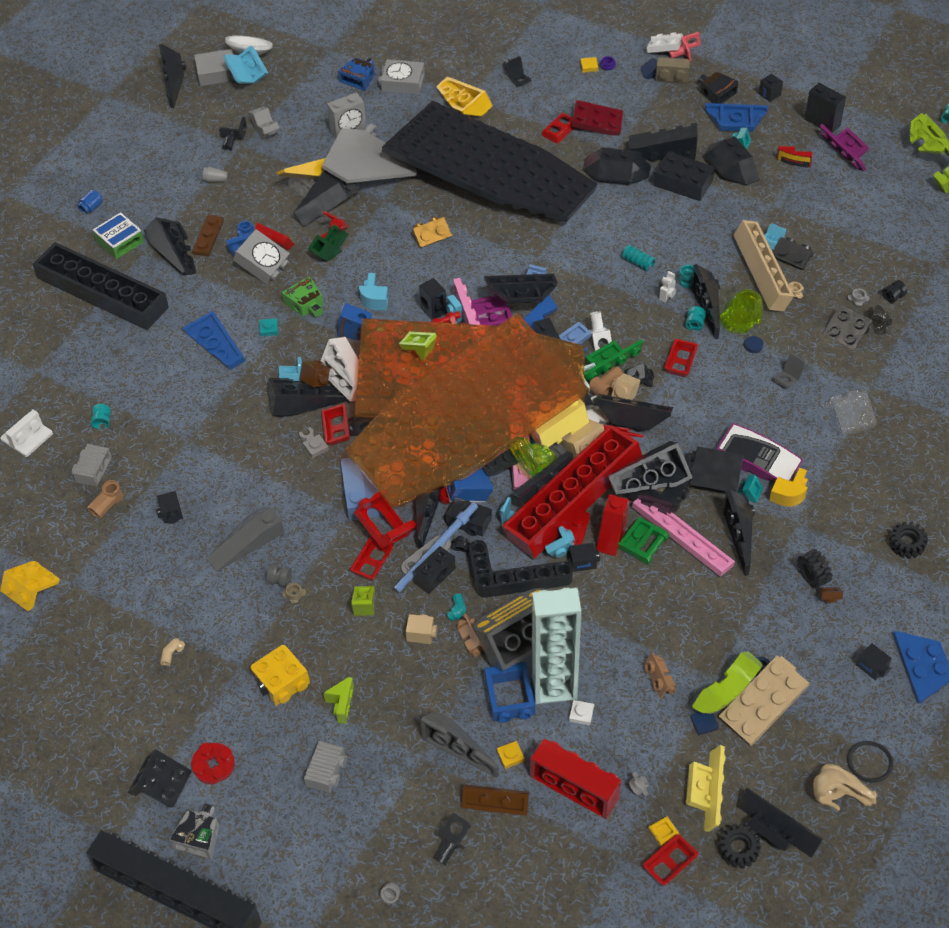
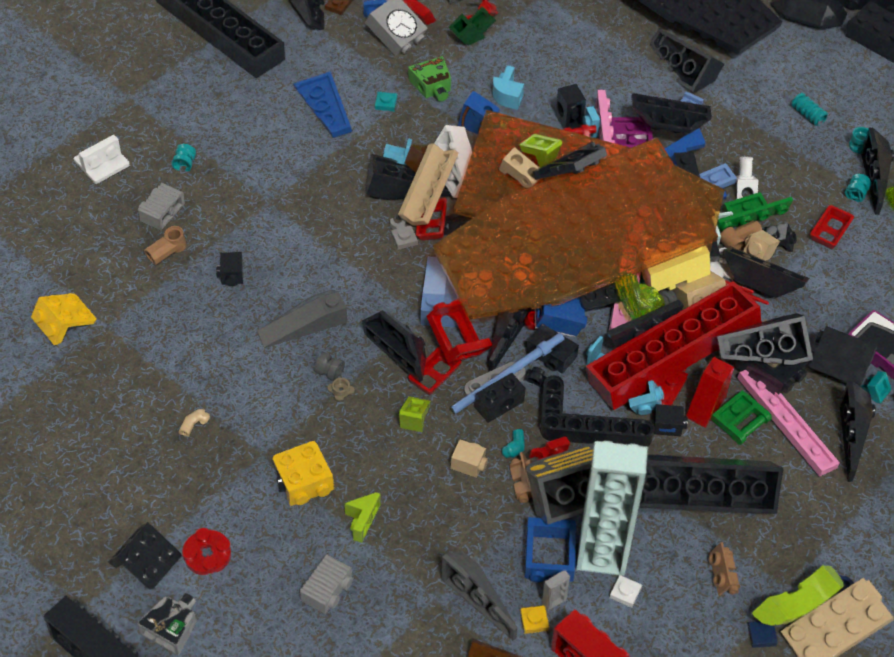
camera: 10 degrees right, 0 degrees up
(323, 396) = (426, 183): none -> tan fence
(333, 541) = (397, 342): none -> black wedge
(405, 365) = (519, 167): none -> tan leg
(431, 232) = (586, 37): pearl gold bracket -> none
(450, 349) = (573, 162): none -> black wing
(489, 604) = (551, 448): none -> red plate
(523, 726) = (555, 590): none -> light grey plate
(530, 240) = (692, 65): none -> black wedge
(635, 604) = (711, 484): none -> black brick
(668, 289) = (835, 148): white plate -> none

